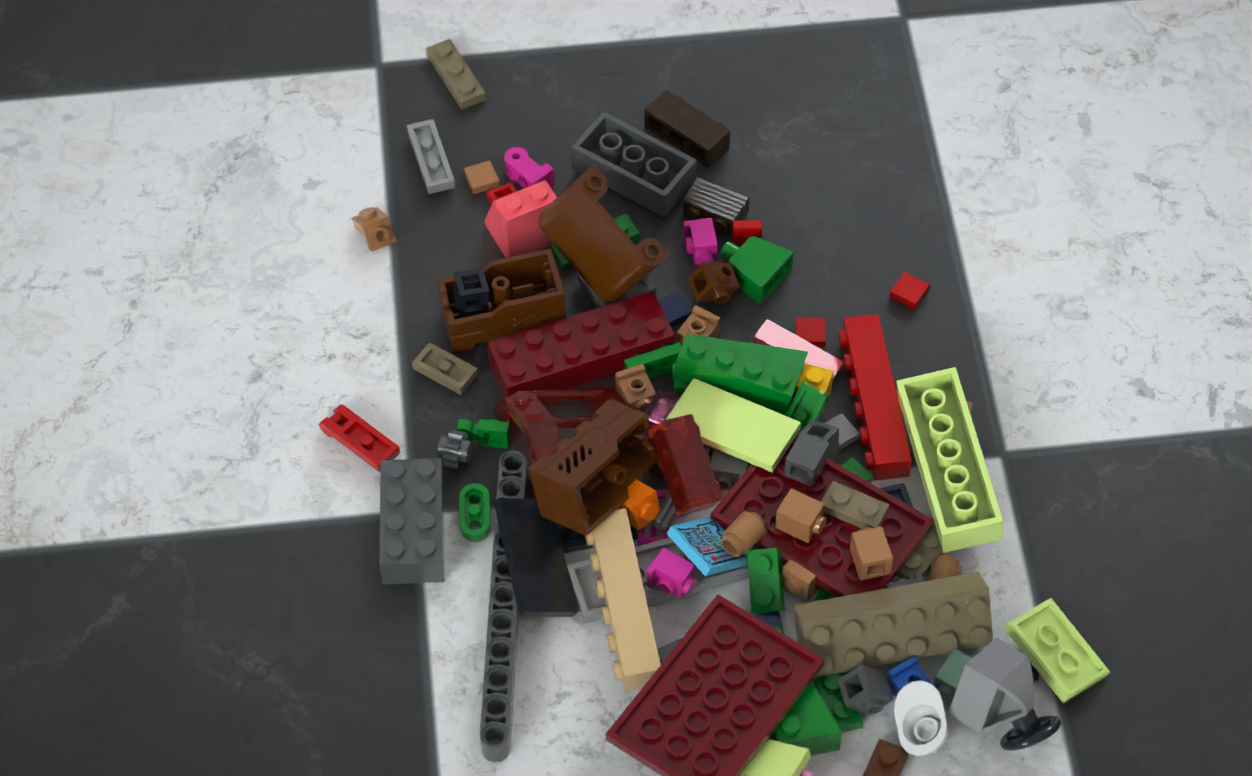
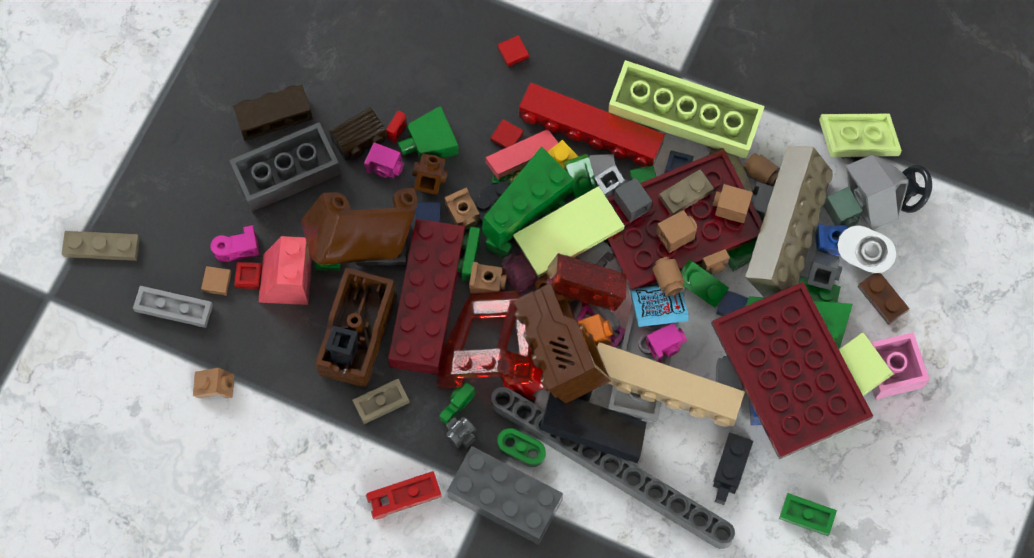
camera: 60 degrees left, 15 degrees up
(578, 717) = (731, 466): none -> black hinge

